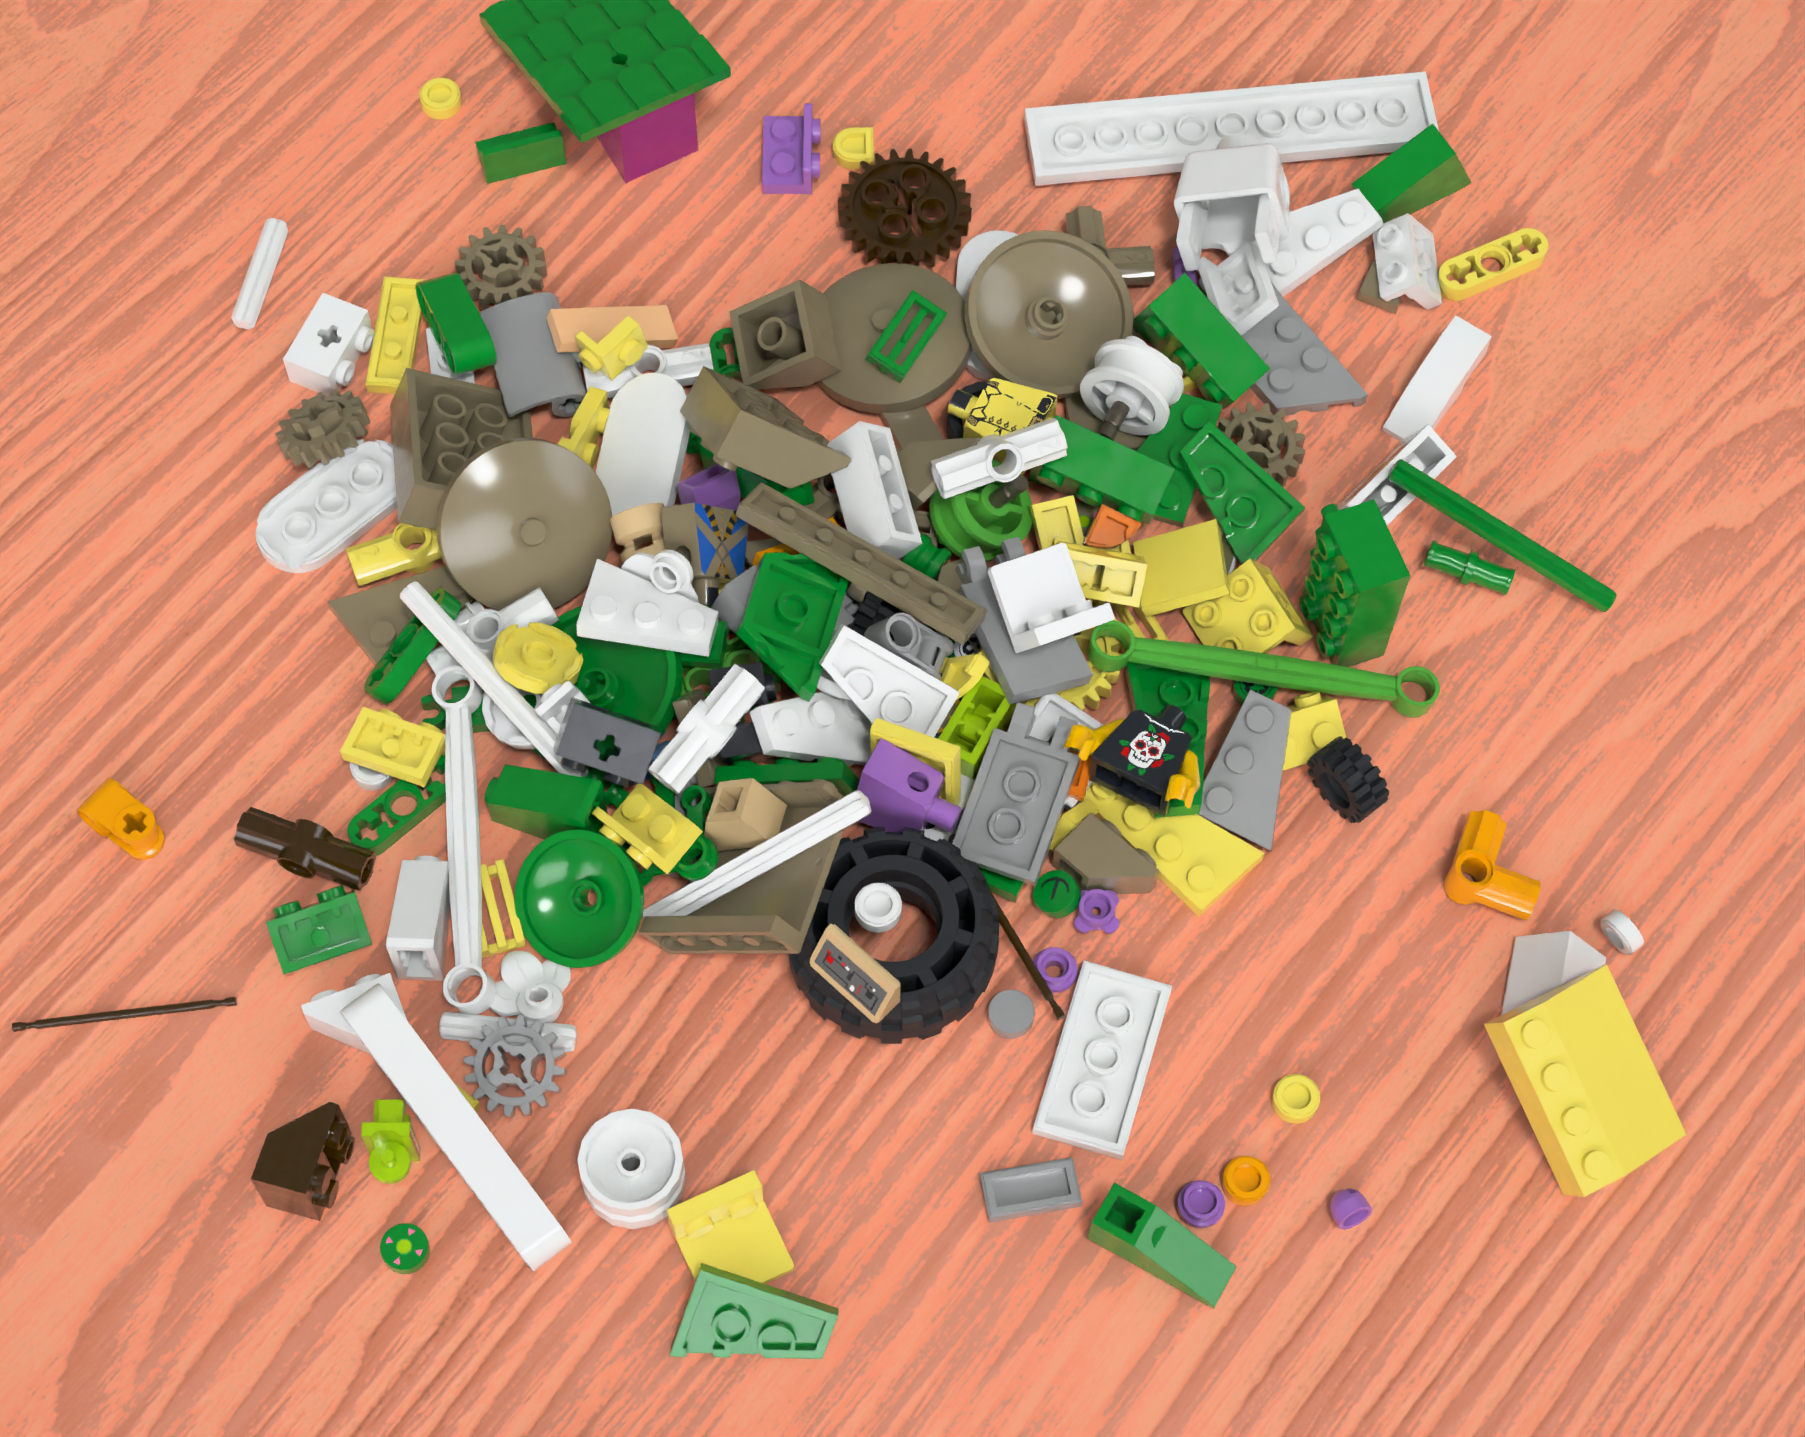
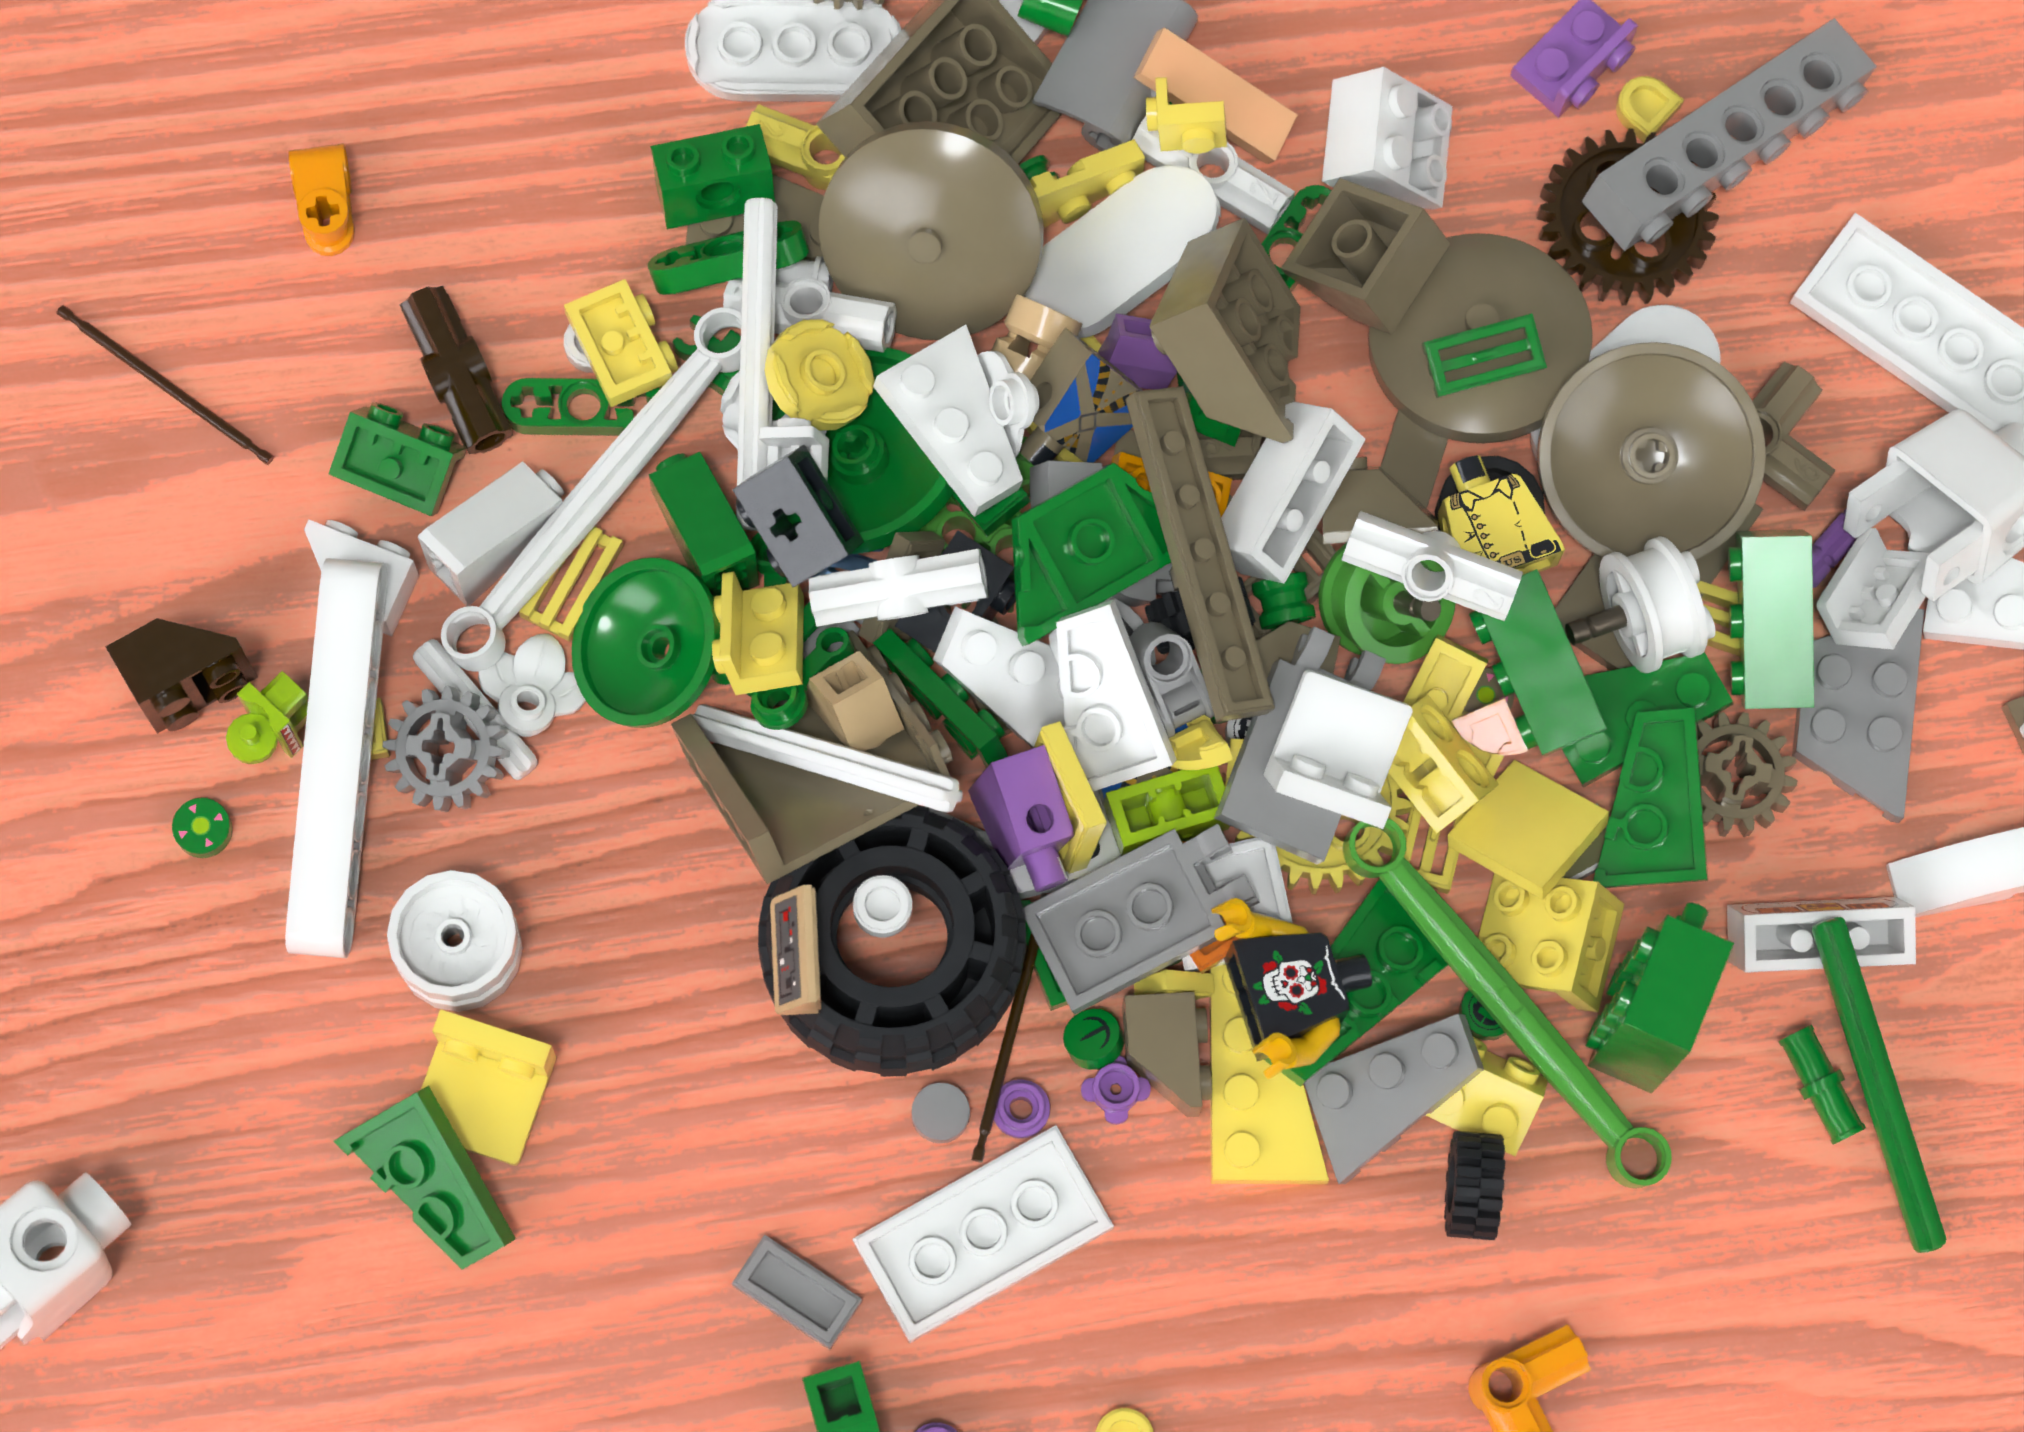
camera: 40 degrees right, 10 degrees up
(360, 605) = (711, 175): none -> green brick
(727, 272) = (1388, 137): none -> white slope
(920, 119) = (1799, 88): none -> light grey brick

